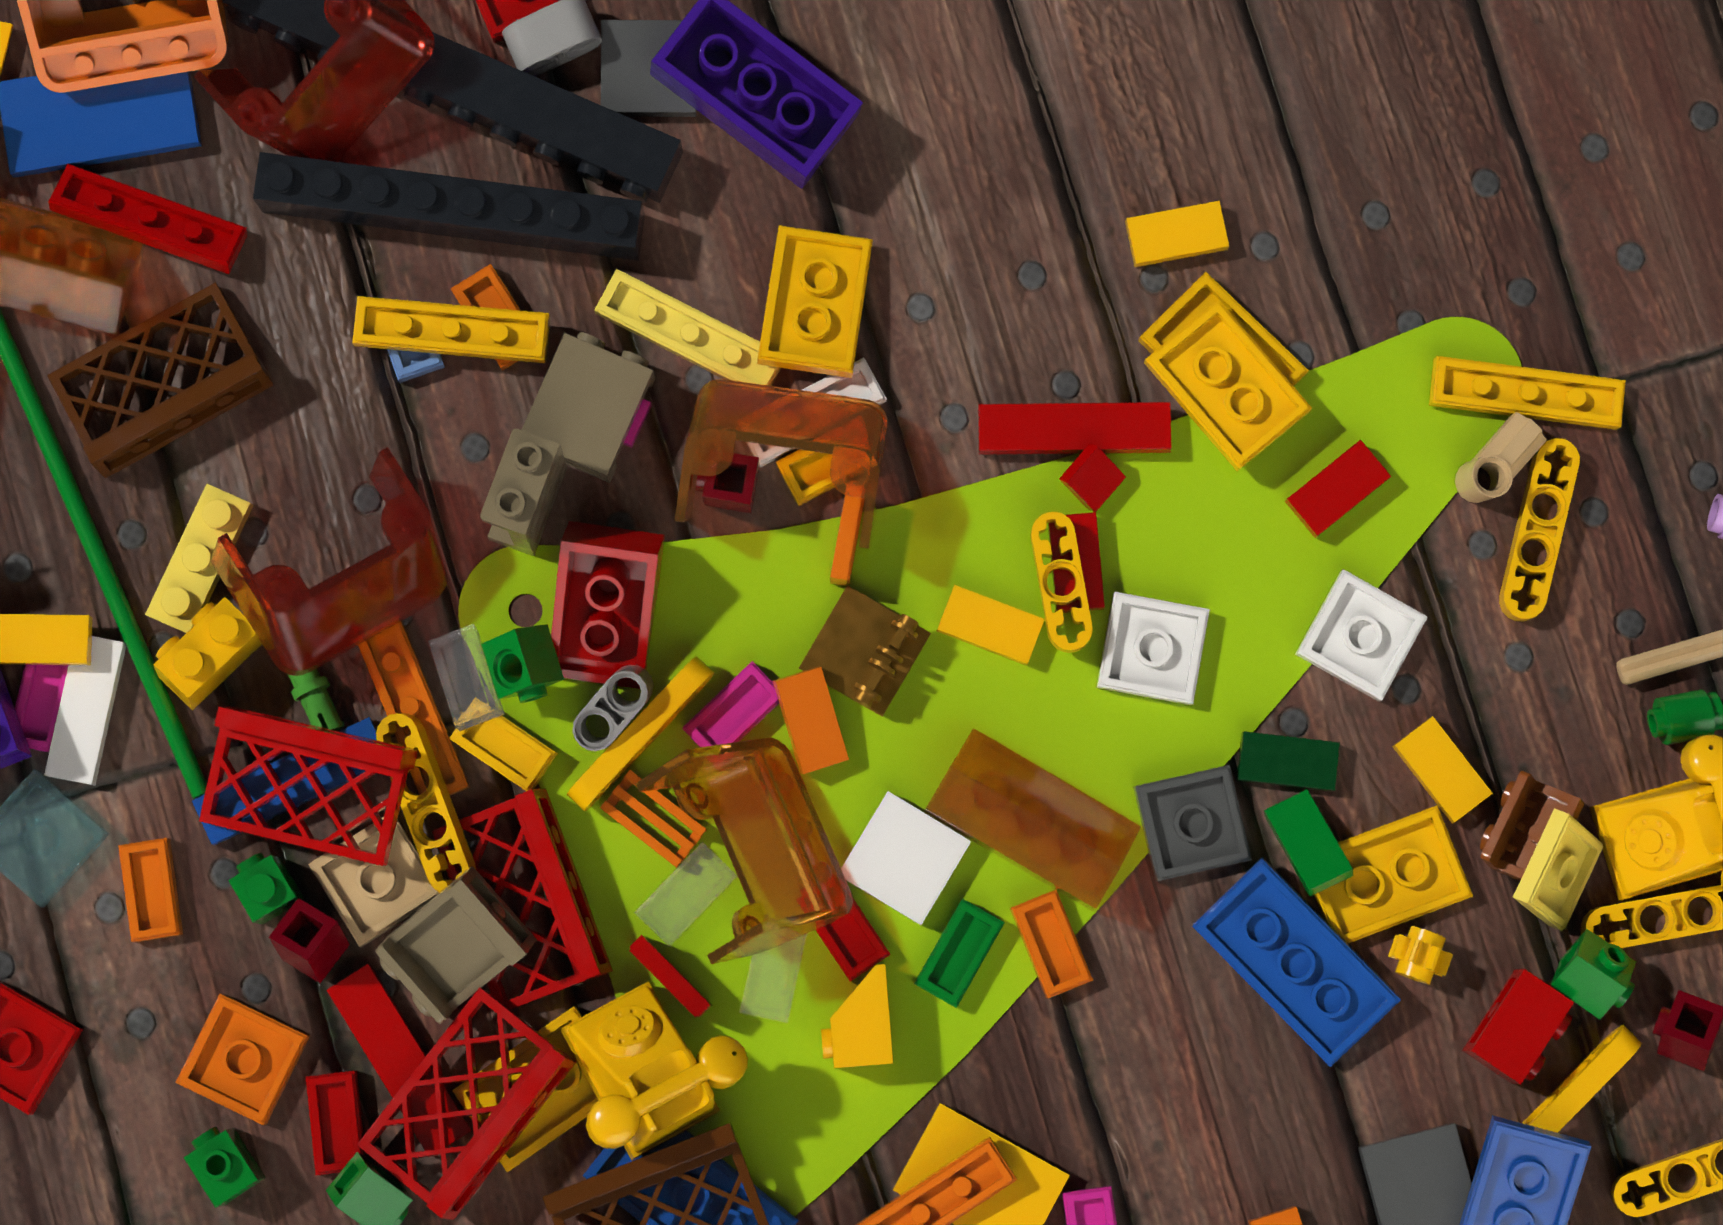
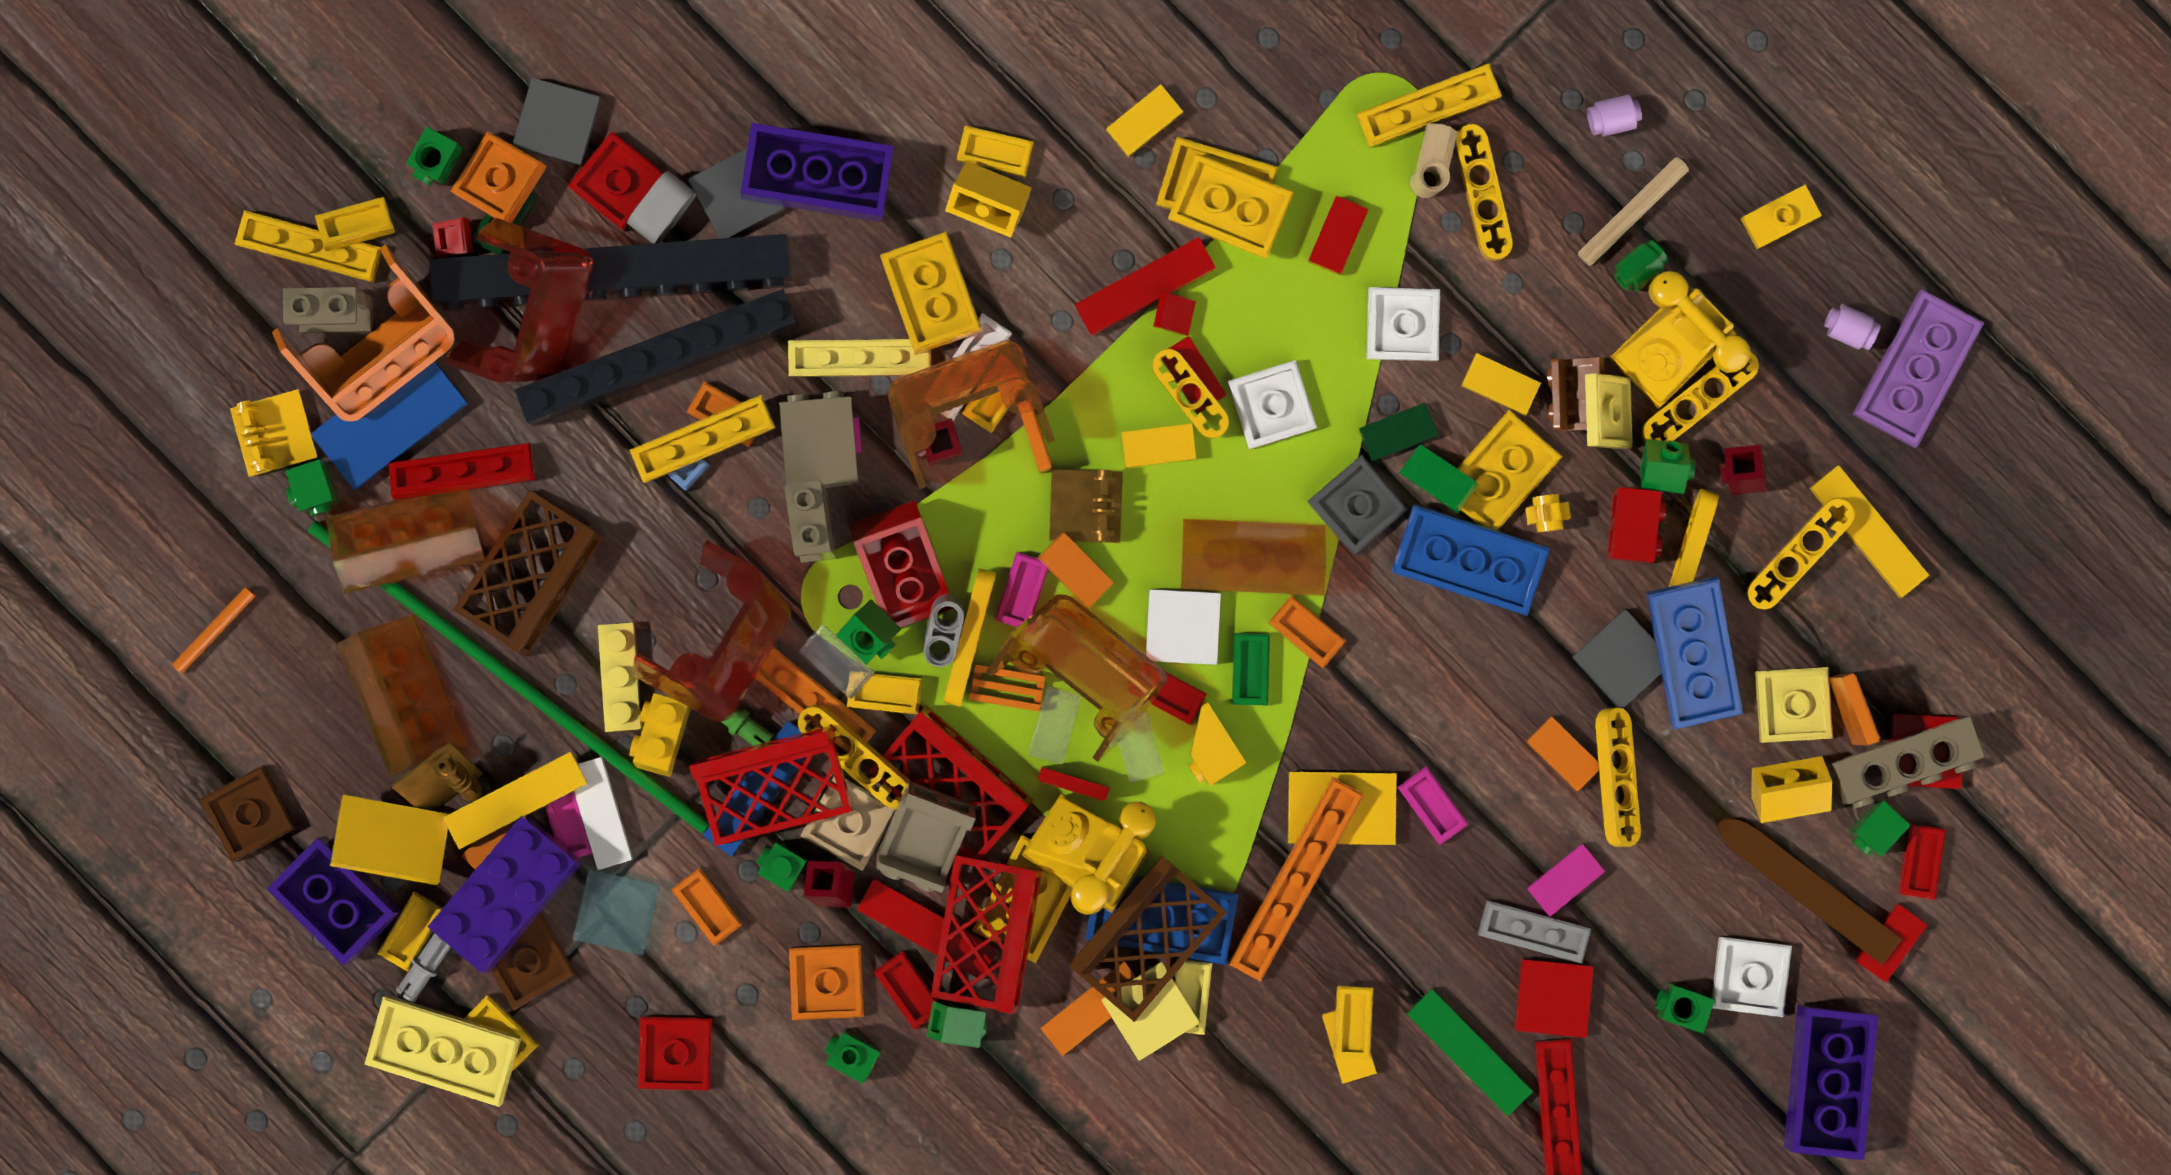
camera: 25 degrees left, 5 degrees up
(942, 225) = (988, 199): none -> yellow brick
(980, 177) = (995, 151): none -> yellow tile

